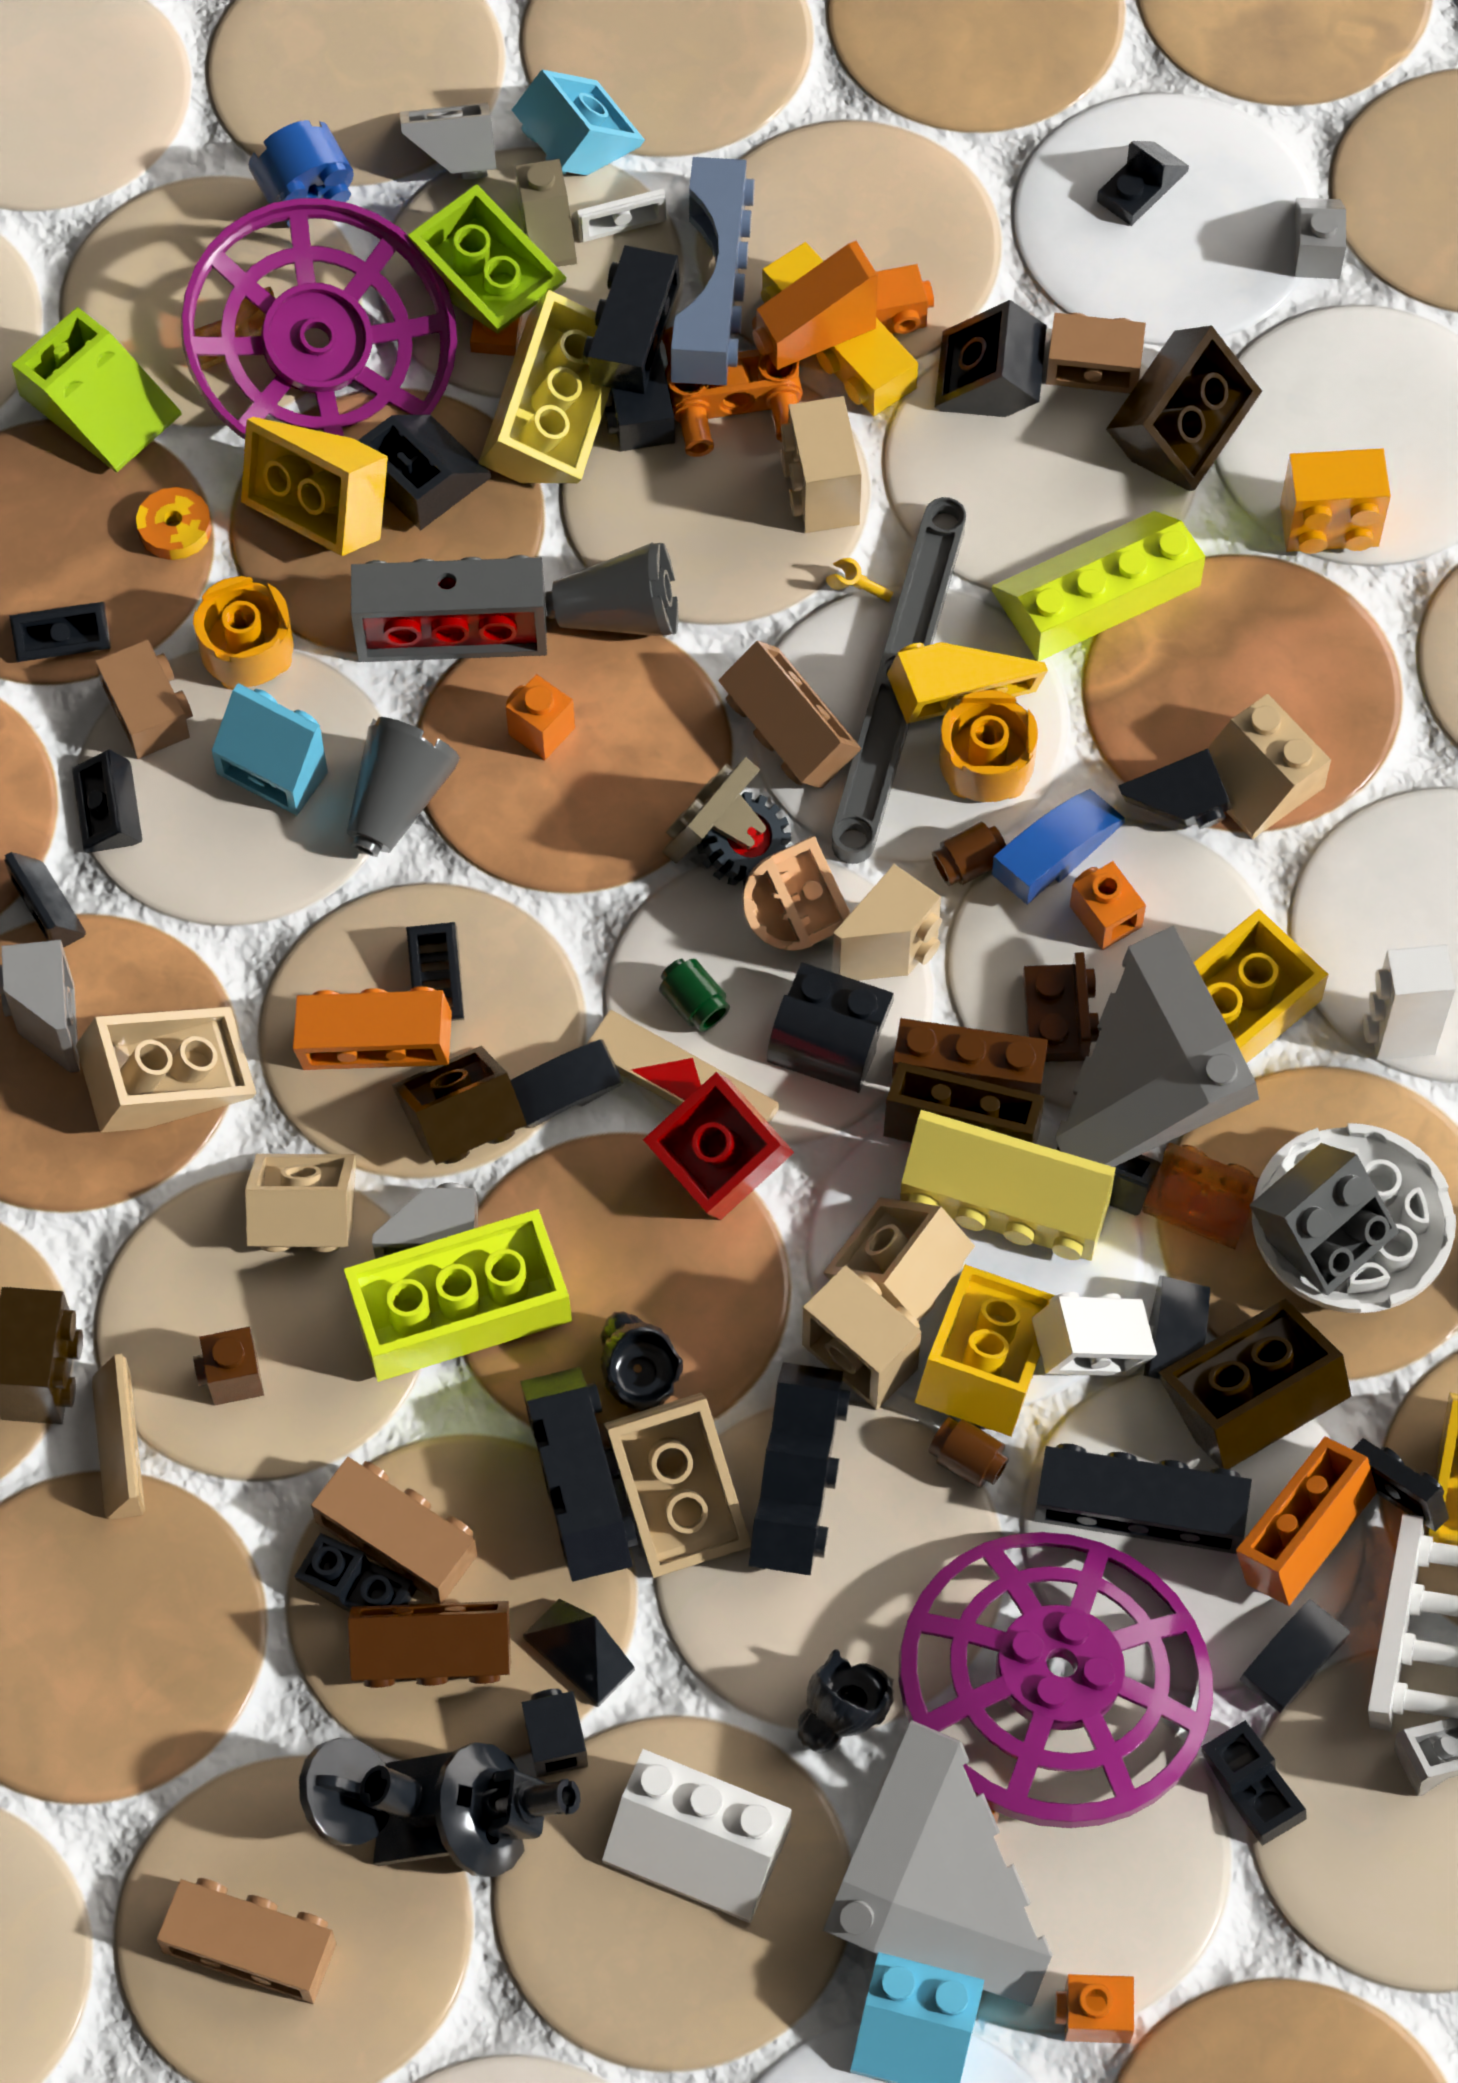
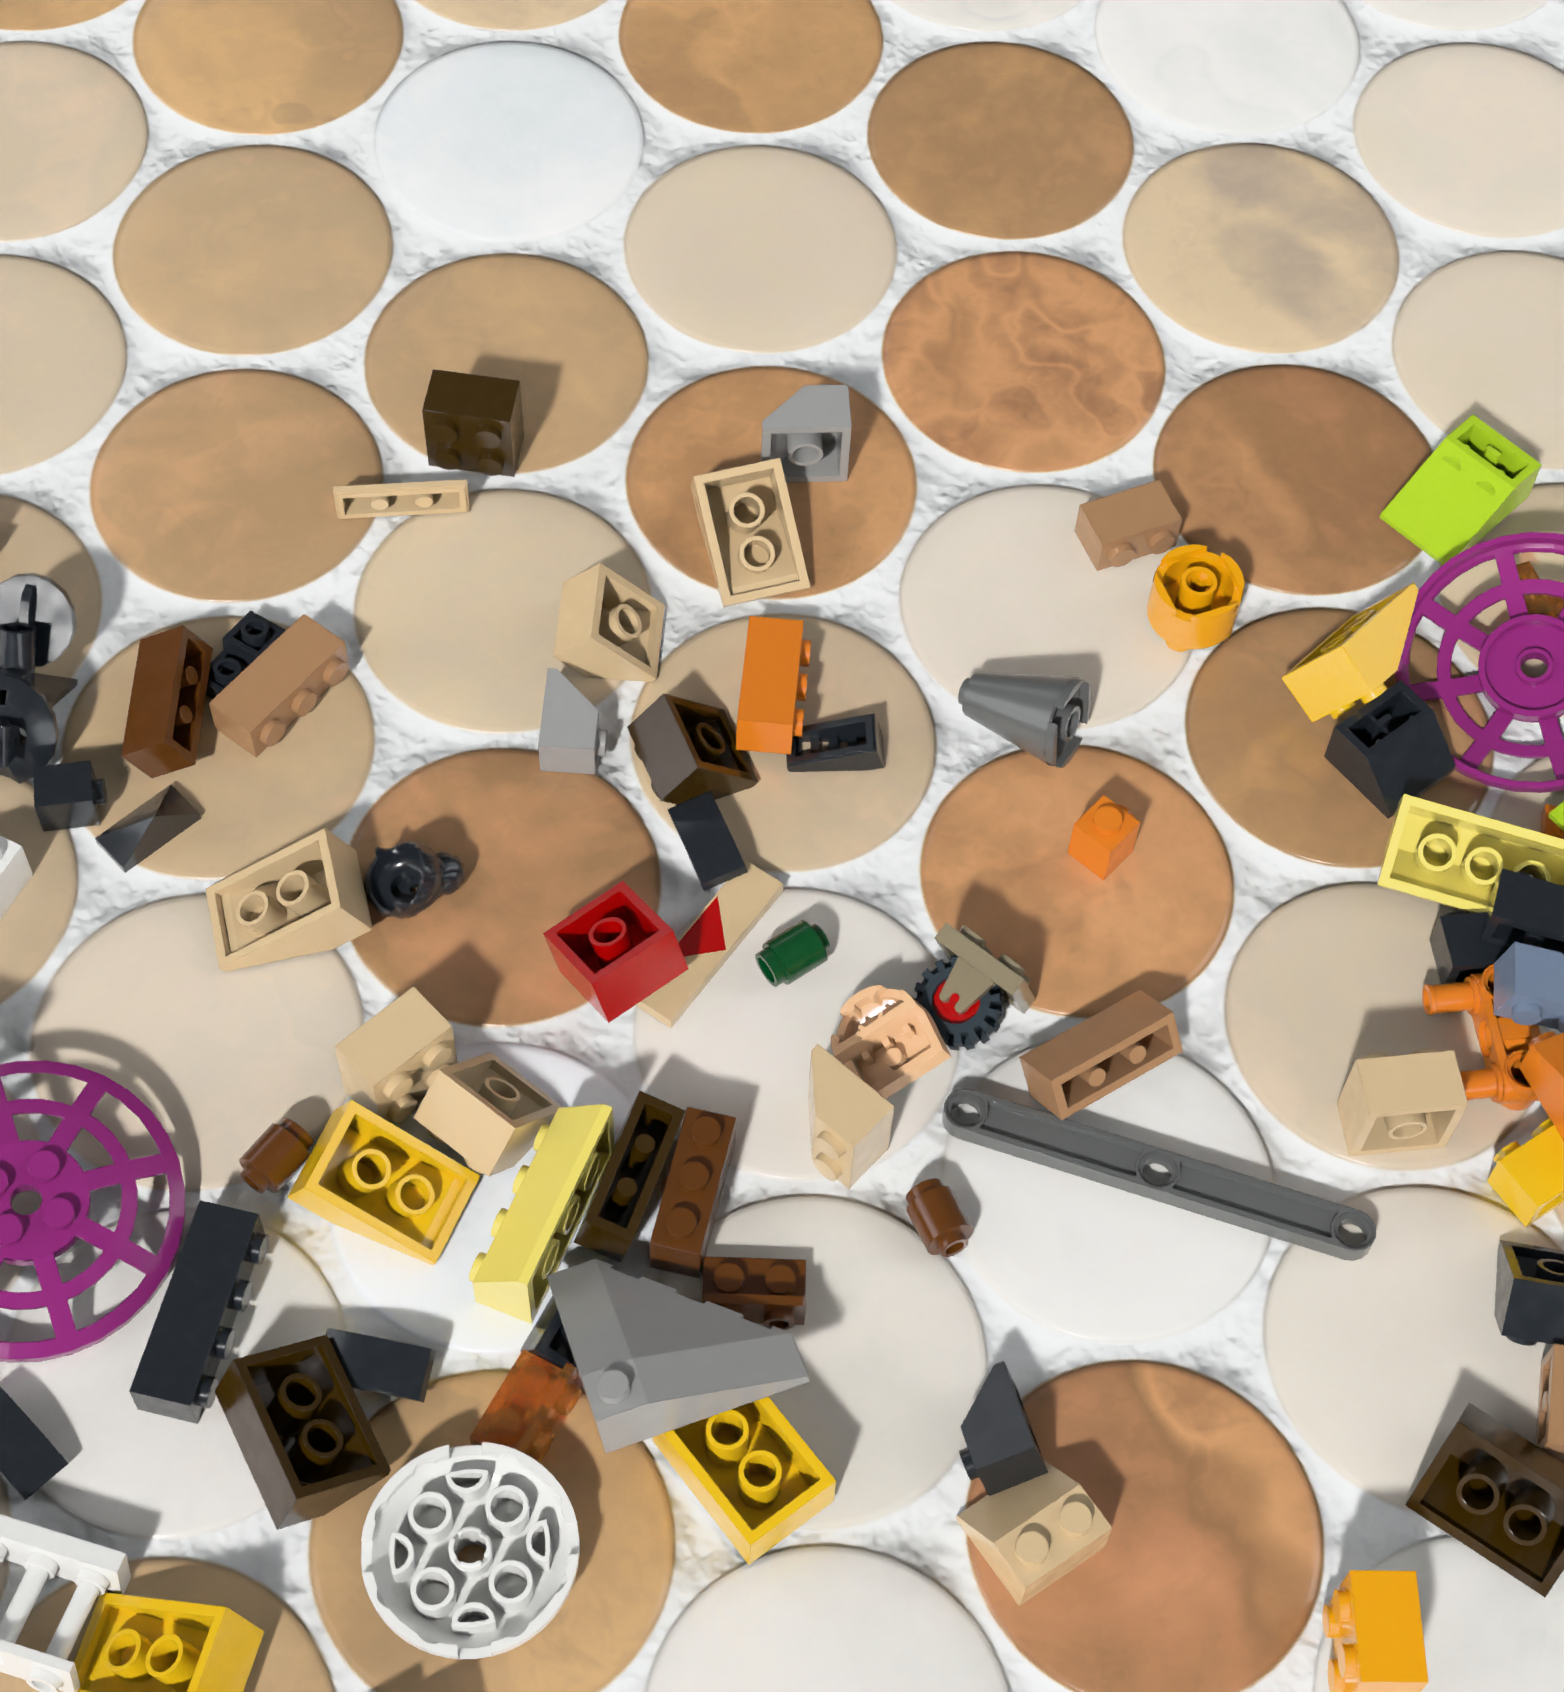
camera: 90 degrees right, 5 degrees down
(44, 899) = (925, 451): black slope -> none
(60, 631) = (1207, 473): black slope -> none
(106, 802) = (1026, 505): black slope -> none
(177, 540) = (1323, 576): piece -> none
(229, 1366) = (452, 570): reddish brown brick -> none
(270, 749) = (1065, 614): medium azure slope -> none
(449, 609) = (1219, 758): dark grey brick -> none
(458, 1295) = (491, 734): neon yellow slope -> none
(578, 1473) = (250, 826): black brick -> none
(619, 595) = (1242, 918): dark grey cone -> none
(798, 1469) = (274, 1000): black brick -> none
(829, 1027) = (750, 1069): black brick -> none
(843, 1702) = (49, 1012): black piece -> none
(855, 578) = (1271, 1145): yellow hand -> none
(939, 675) = (1138, 1200): yellow slope -> none
(988, 747) = (1054, 1266): light orange brick -> none
(1055, 844) = (946, 1303): blue slope -> none
(1093, 1335) = (372, 1272): white brick -> none
(1101, 583) = (1274, 1383): neon yellow slope -> none
(1107, 904) = (871, 1346): orange brick -> none
(1306, 1521) = (140, 1459): orange brick -> none
(1325, 1216) = (457, 1502): dark grey slope -> none
(1404, 1487) = (148, 1566): black plate -> none
(1410, 1002) = (705, 1626): white brick -> none

